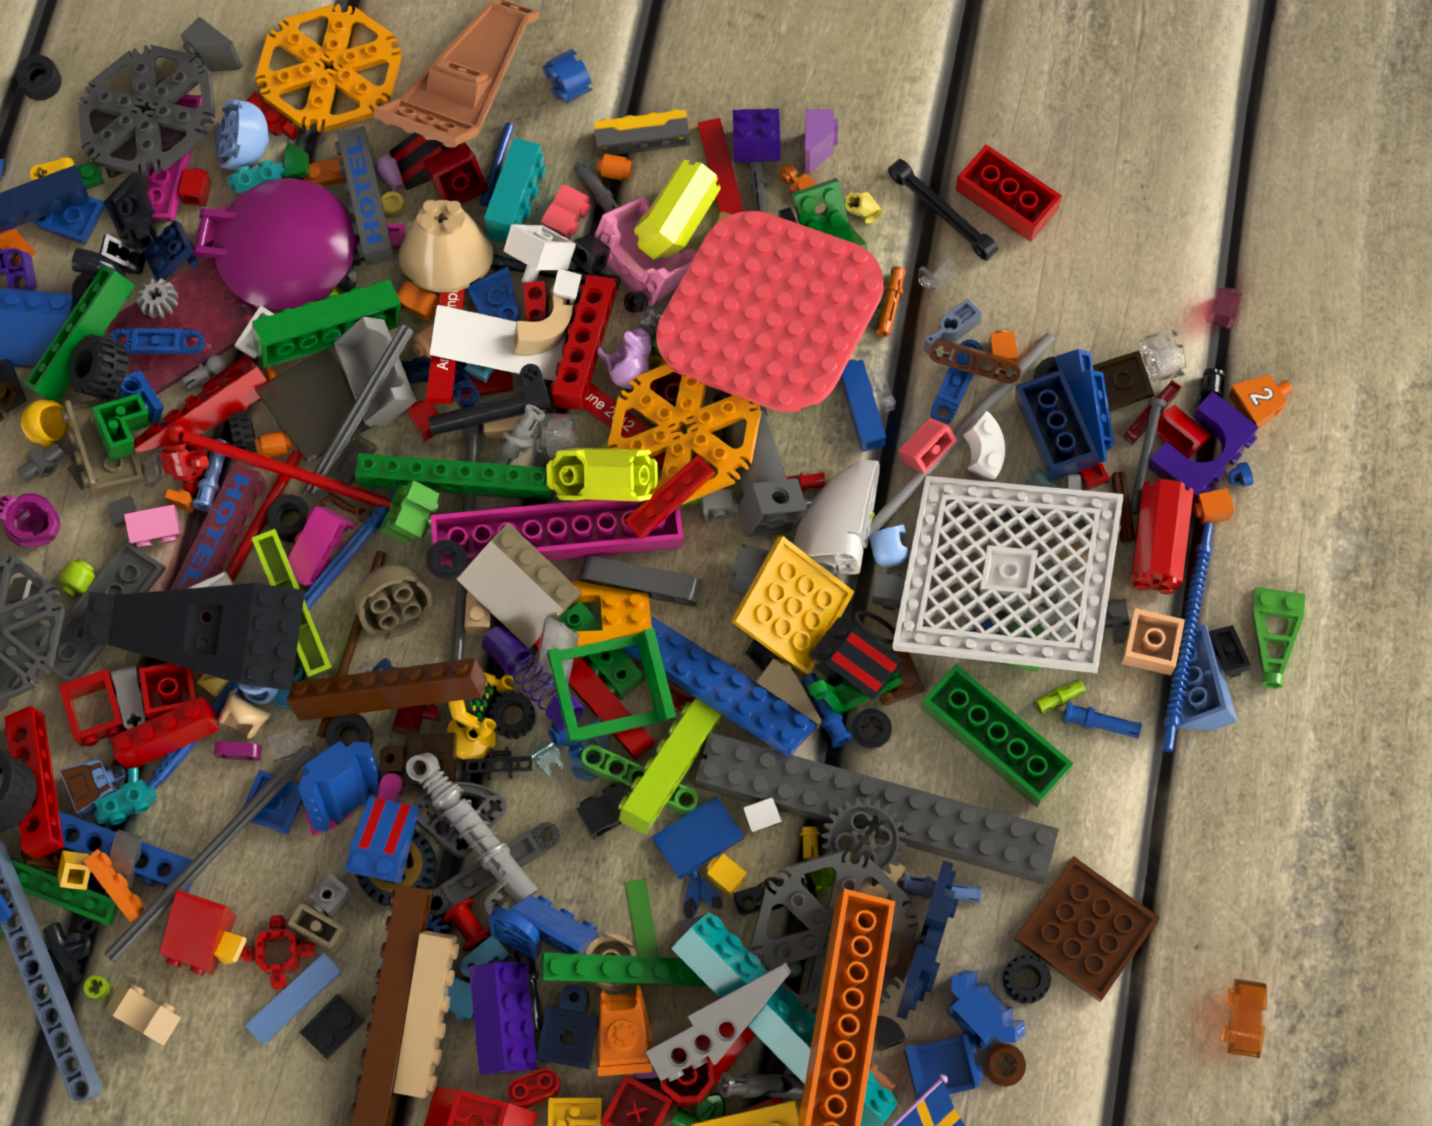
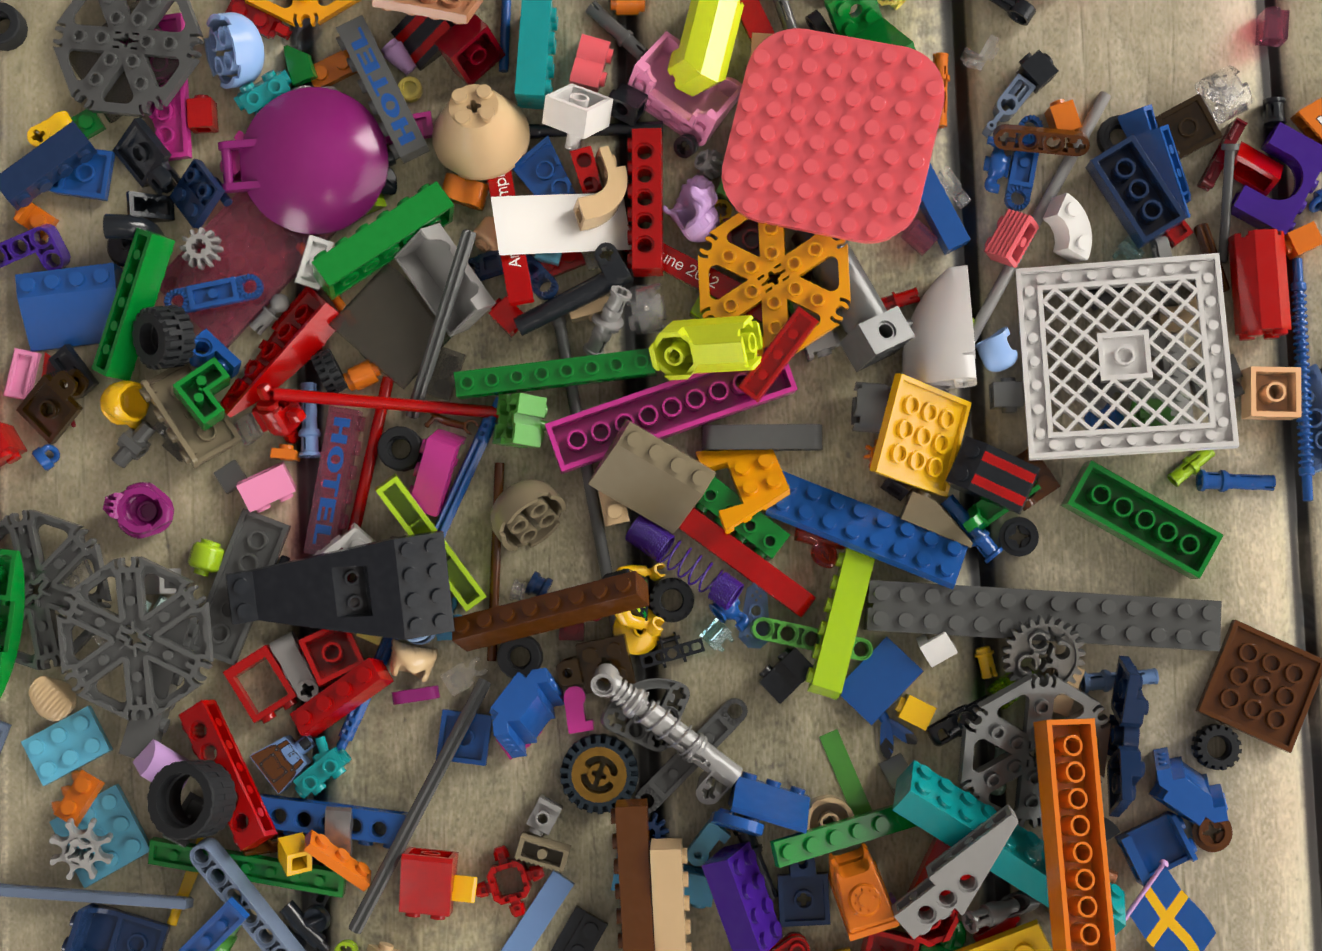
camera: 15 degrees left, 15 degrees up
(382, 840) = (584, 759): blue slope -> none
(448, 548) = (586, 466): black gear -> none
(467, 924) = (683, 815): red hose -> none
(554, 636) = (704, 534): clear piece -> none
(567, 285) = (613, 145): white panel -> none
(654, 675) = (807, 541): green piece -> none
(838, 427) = (919, 237): none -> clear pink brick
(868, 632) = (998, 446): black piece -> none
(929, 379) = (996, 165): none -> blue piece
(987, 300) = (1037, 69): none -> black brick

